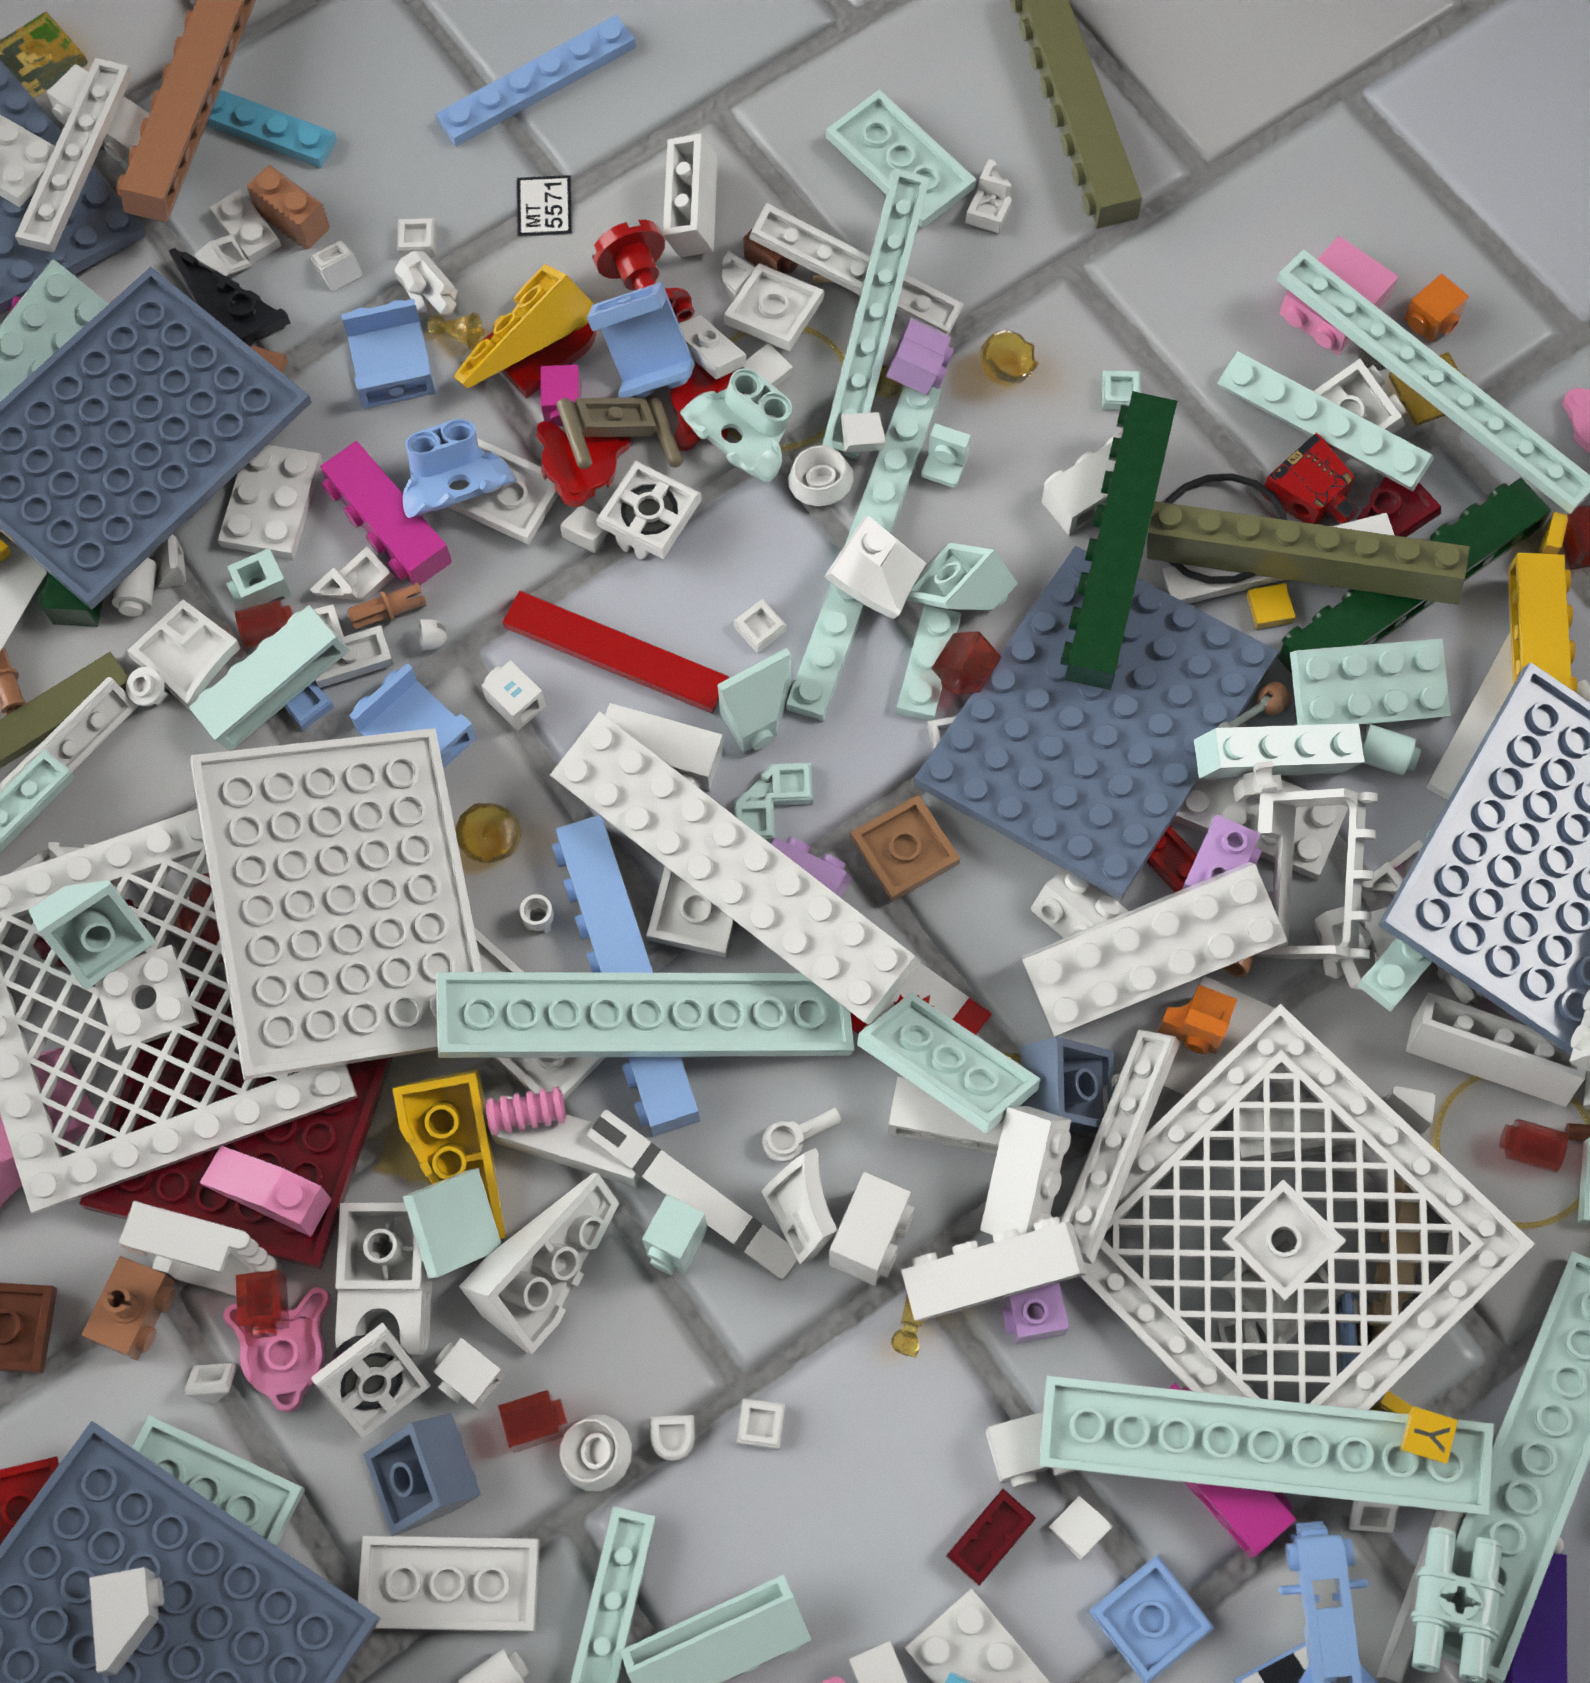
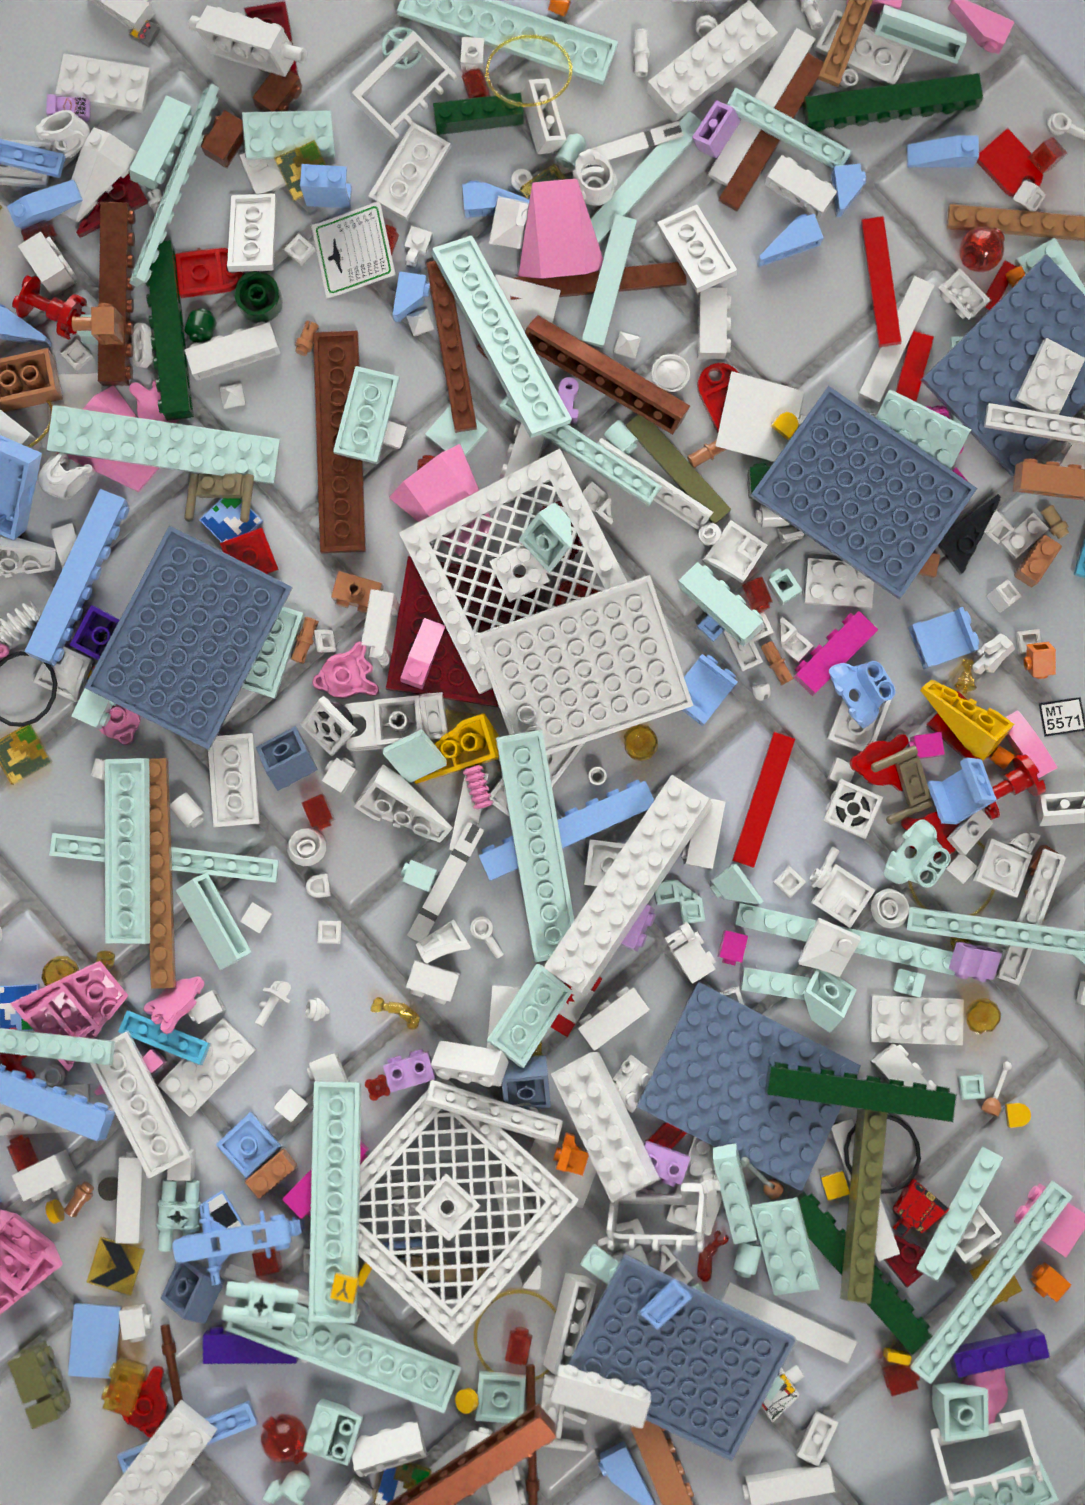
camera: 80 degrees right, 15 degrees up
(123, 1614) = (195, 622): white slope -> none
(202, 1419) = (304, 640): none -> nougat pin
(230, 179) = (1057, 525): none -> tan animal
(262, 1303) = (363, 662): clear red brick -> none
(379, 1182) = (433, 715): none -> white plate
(447, 217) = (1040, 660): none -> orange brick
(513, 695) = (728, 744): white brick -> none
(574, 249) = (1025, 741): none -> bright pink slope
(598, 288) = (1001, 757): none -> orange hose
(718, 1563) = (256, 917): none -> white tile
(757, 573) = (821, 876): none -> white plate
(791, 543) = (843, 896): none -> white plate
(860, 721) = (732, 947): none -> dark pink brick
(862, 432) = (919, 931): white slope -> none
(865, 789) = (689, 953): none -> white hinge
(866, 1530) = (277, 992): none -> white arm
(904, 1462) = (316, 1009): none -> white plate
(905, 848) = (658, 980): medium nougat plate -> none
(964, 928) = (612, 1017): none -> white brick
(966, 662) = (774, 1006): clear red brick -> none
(990, 1537) = (281, 1058): dark red plate -> none
(993, 1270) = (413, 1050): white brick -> none
(1007, 459) = (916, 1020): none -> white plate
(1065, 1348) = (371, 1085): none -> clear red plate
(1153, 361) = (992, 1105): none -> hinge
(1169, 330) = (1017, 1114): none -> yellow tile
(1207, 1575) = (271, 1173): none -> nougat brick
(1378, 1600) = (265, 1265): none -> clear red brick
(1388, 820) = (704, 1267): none -> clear red arm
(1467, 860) = (665, 1304): none -> light blue tile
(1541, 615) = (833, 1348): yellow brick -> none
(1547, 383) = (999, 1352): none -> dark purple brick

